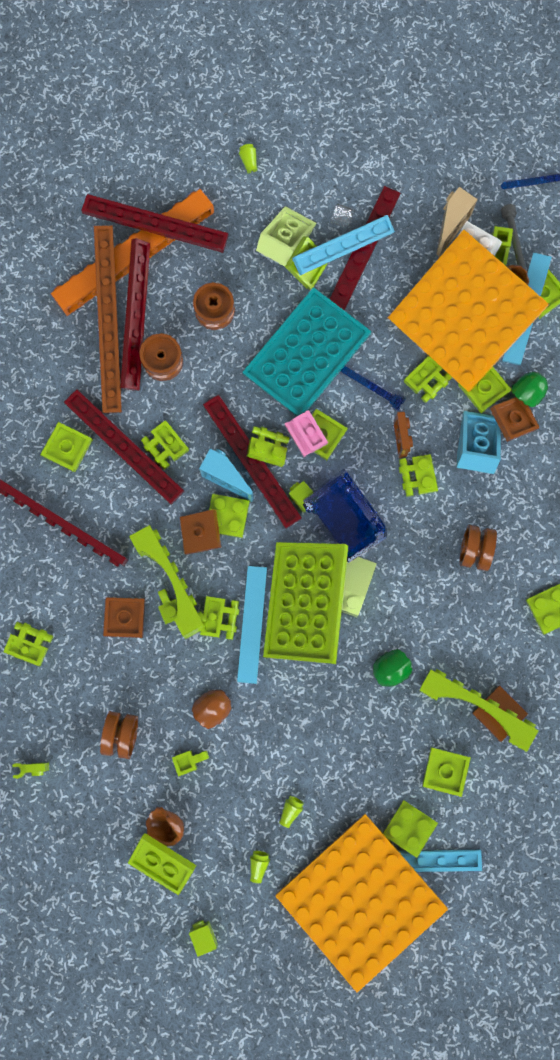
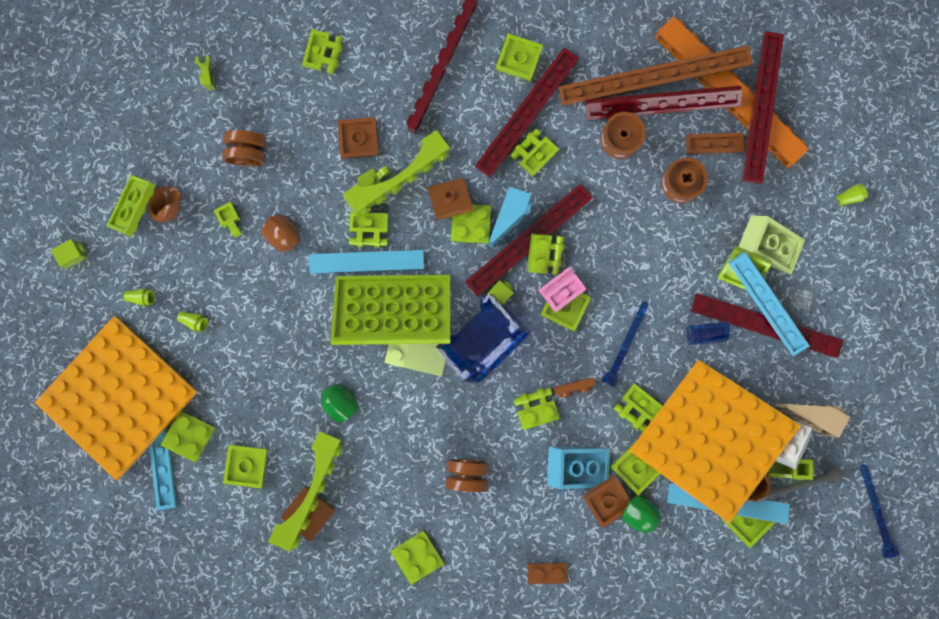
camera: 80 degrees right, 5 degrees up
(181, 274) = (714, 143): none -> dark orange plate
(307, 352) = (648, 281): teal plate -> none
(364, 304) = (708, 333): none -> clear blue brick

